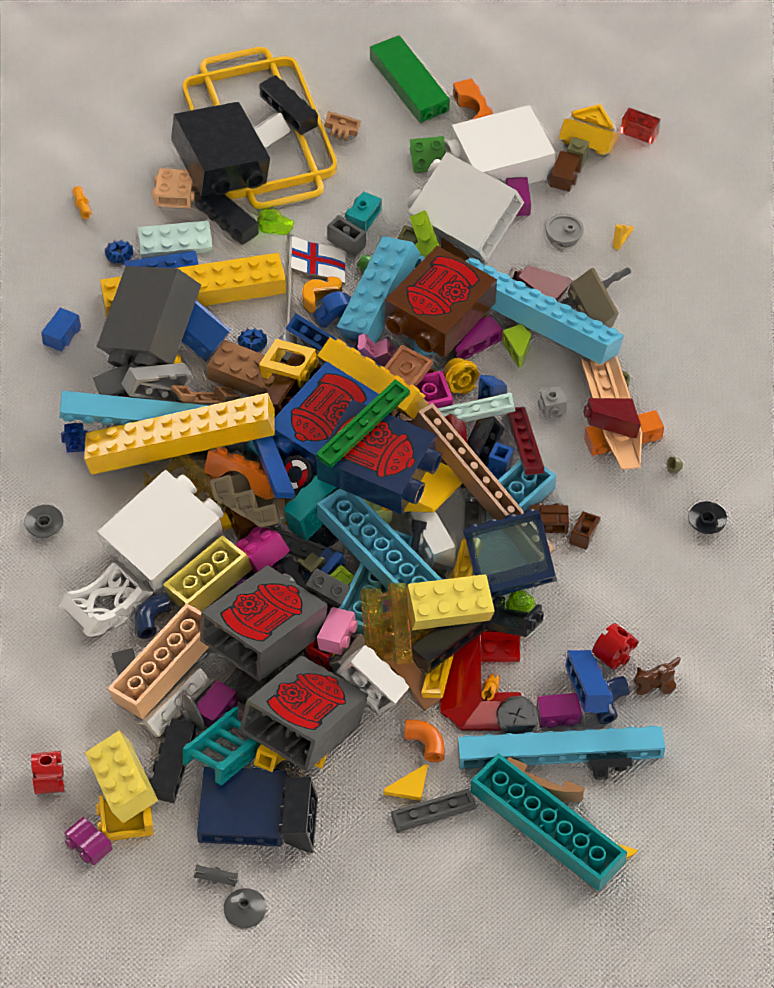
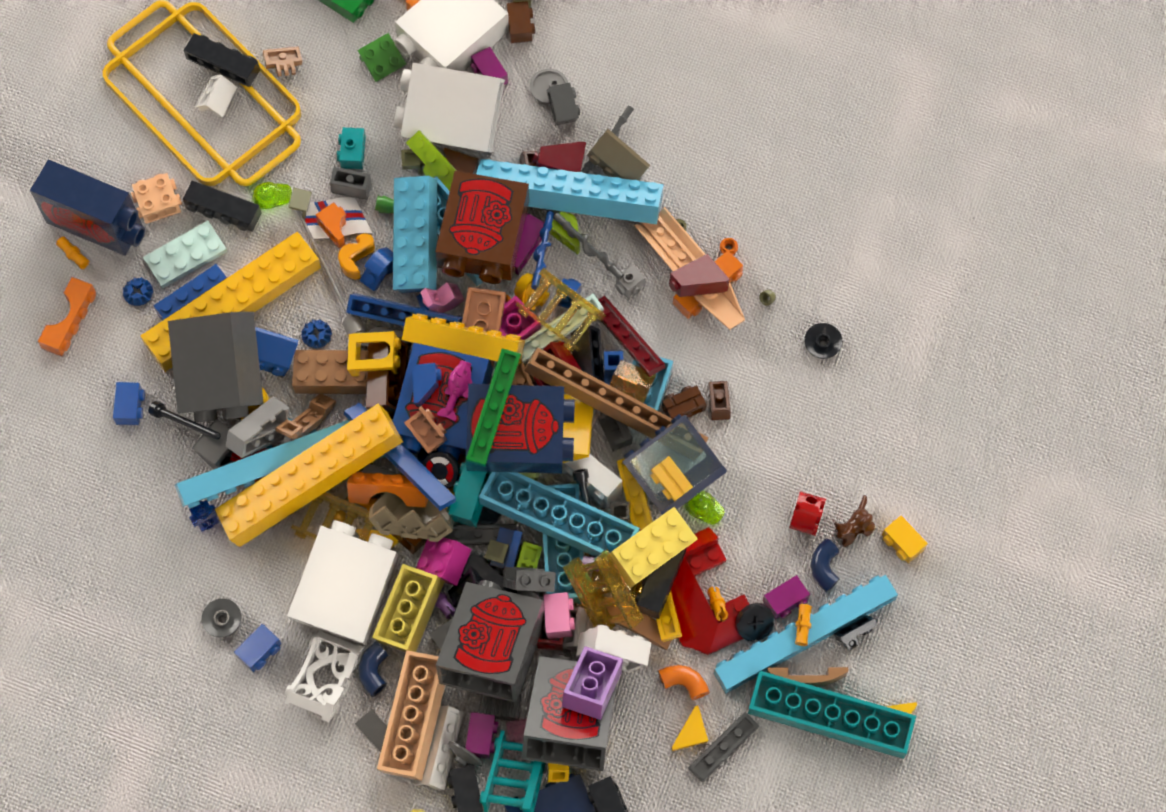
camera: 25 degrees left, 15 degrees up
(32, 258) = (57, 337): none -> orange arch
(61, 557) = (258, 648): none -> brick
(84, 344) = (159, 410): none -> black piece
(110, 166) = (87, 208): none -> dark blue brick
(220, 149) = (185, 142): black brick -> none
(296, 232) = (300, 200): none -> panel
(298, 432) = (425, 430): none -> nougat bracket
(314, 258) = (331, 221): none -> orange arch
(318, 393) = (425, 381): none -> blue slope
(333, 687) = (592, 682): none -> medium lavender brick
(357, 395) = (457, 387): none -> dark pink animal
(481, 343) = (540, 250): none -> blue piece
(482, 377) = (578, 302): none -> clear yellow fence
(500, 561) = (670, 478): none -> yellow brick
(509, 473) = (632, 381): none -> clear orange slope
(514, 621) = (709, 527): black panel -> none
(527, 358) = (587, 247): none -> dark grey piece
(560, 733) = (803, 625): none -> light orange pin
(568, 244) = (563, 104): none -> dark grey brick
(588, 681) = (802, 561): blue brick -> none
(621, 234) = (605, 71): yellow tile -> none
(663, 408) = (728, 242): none -> orange plate
(697, 708) = (904, 539): none -> yellow brick

